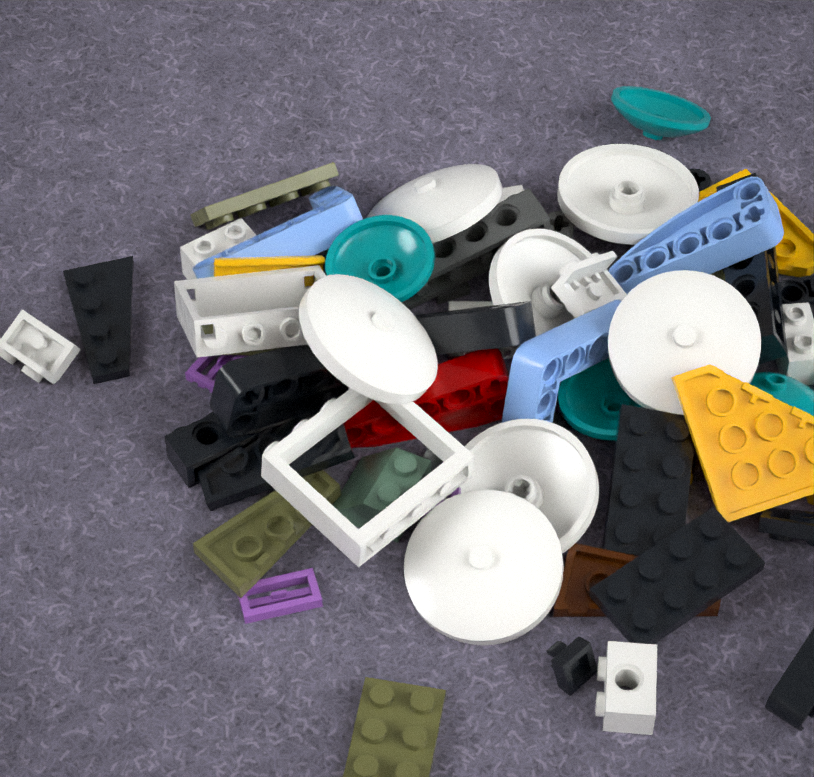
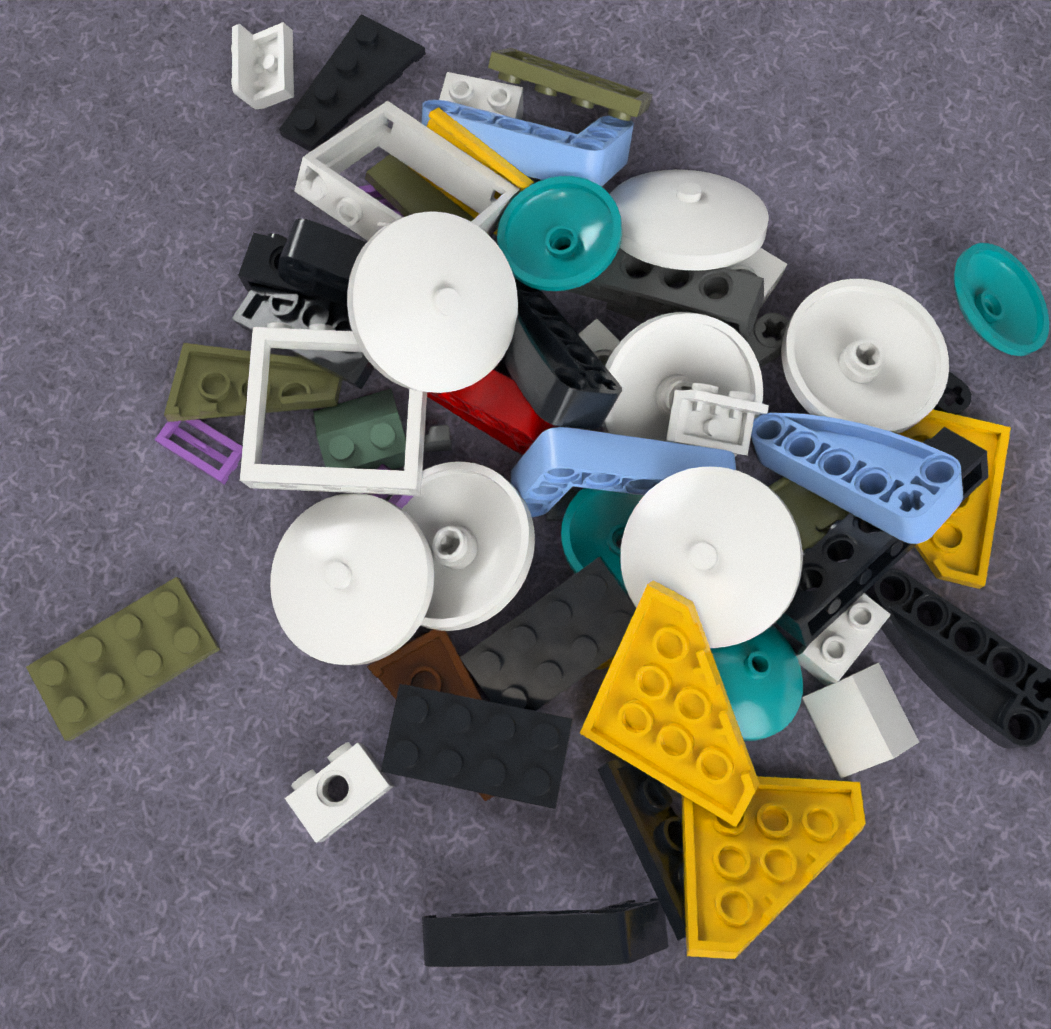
camera: 50 degrees right, 25 degrees up
(572, 664) = (324, 726): black tile -> none

